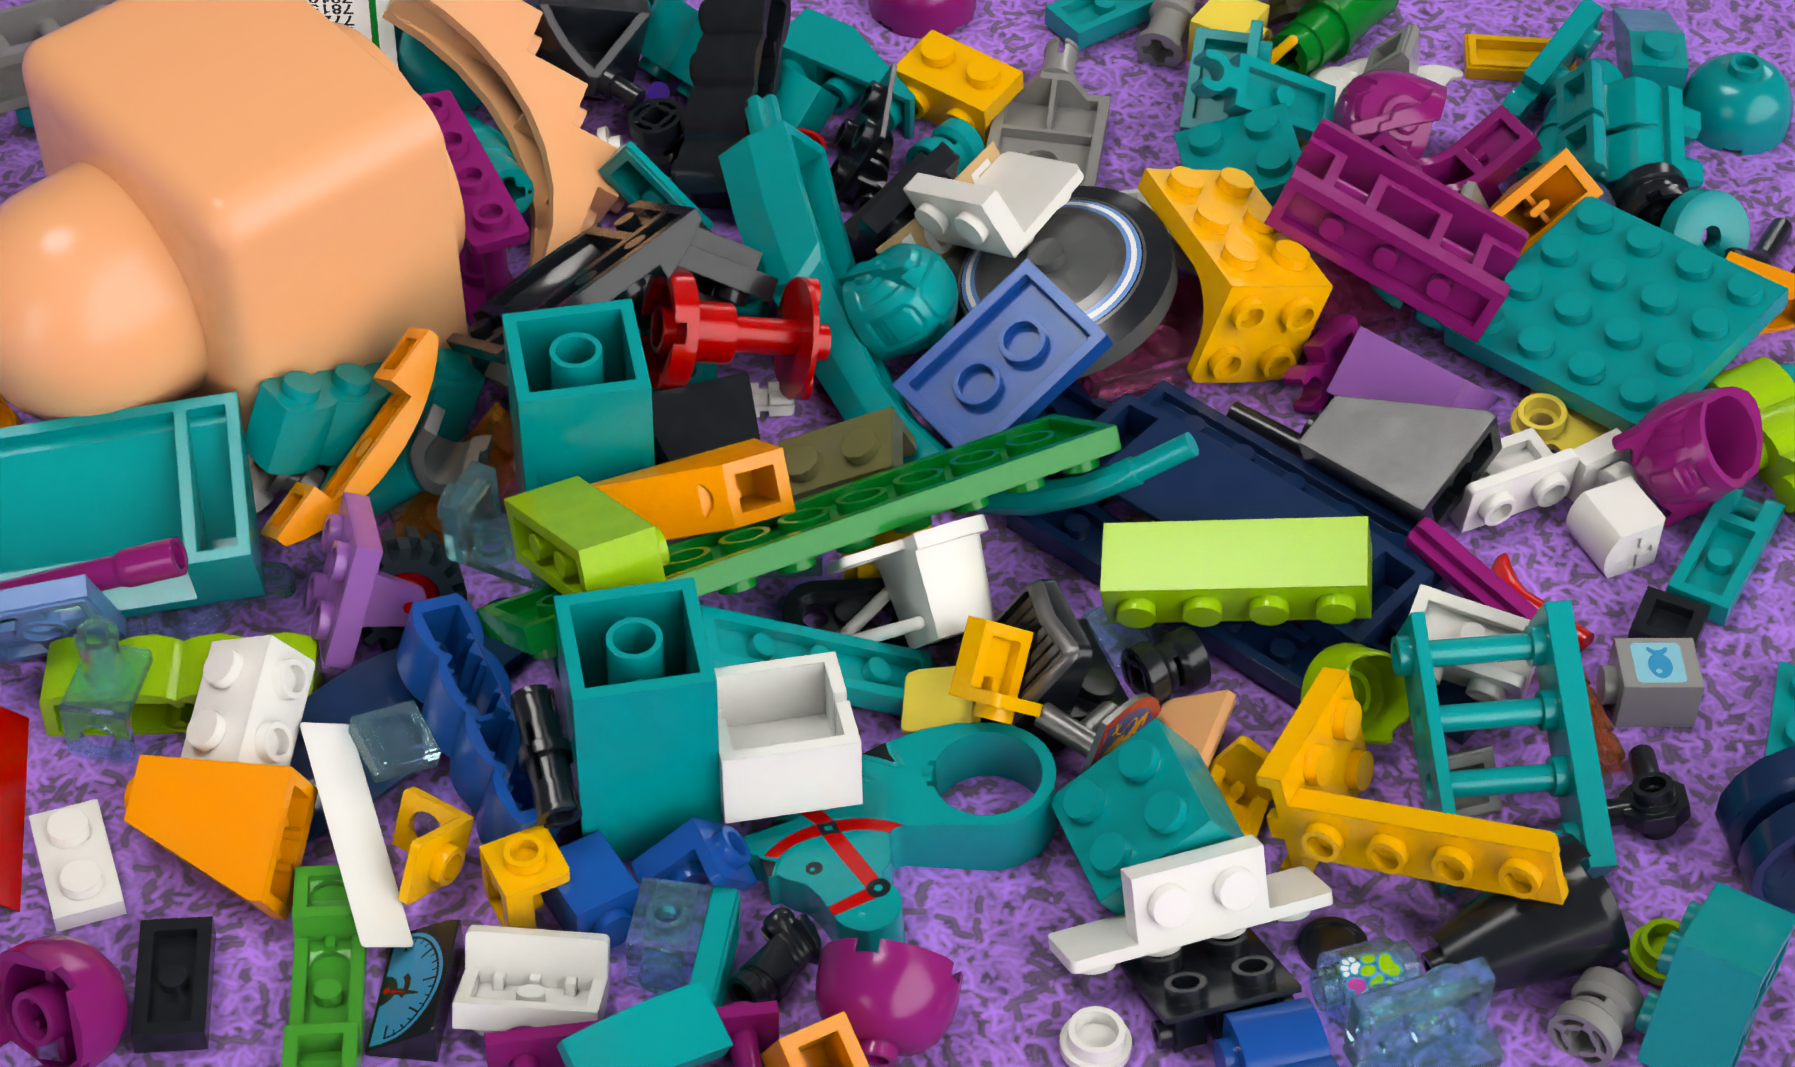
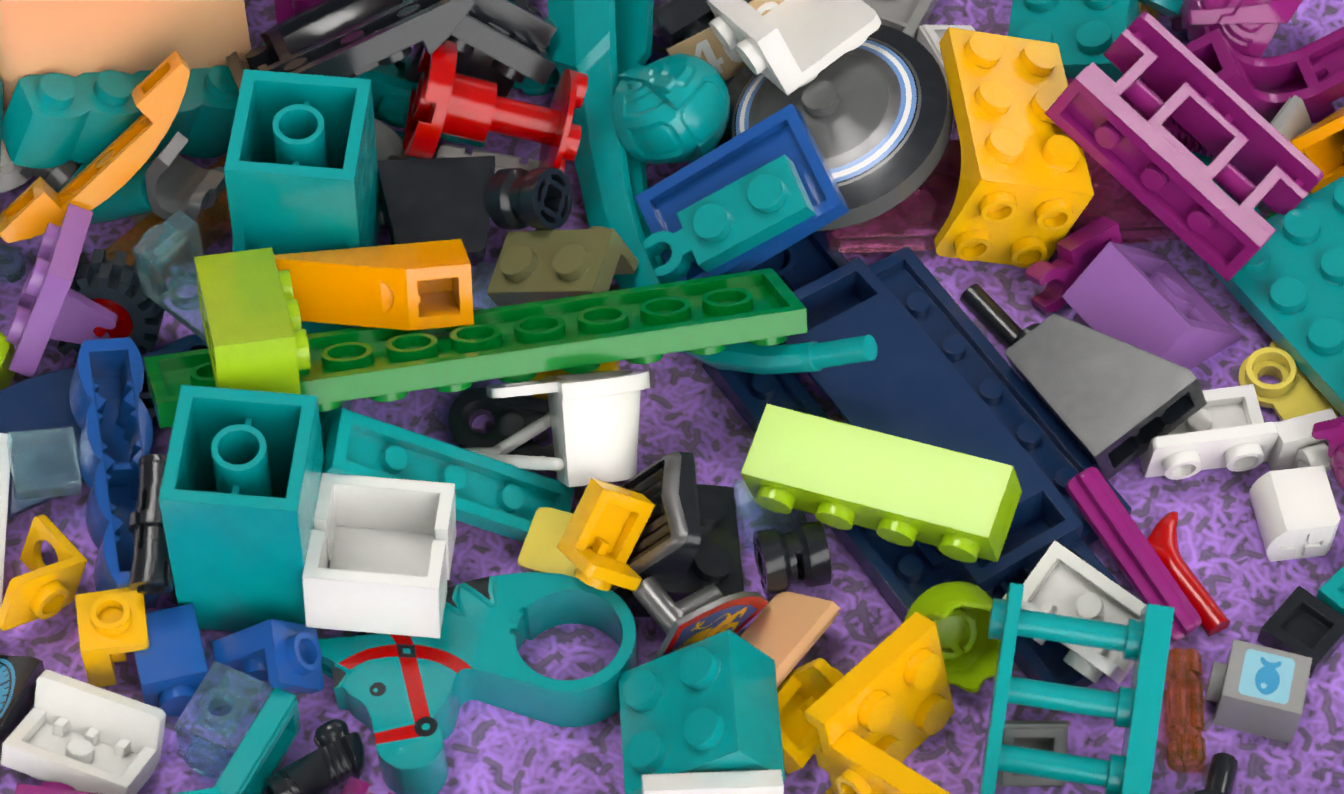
camera: 15 degrees right, 10 degrees up
(787, 405) = (529, 198): none -> black wheel
(1003, 376) = (733, 220): none -> teal plate

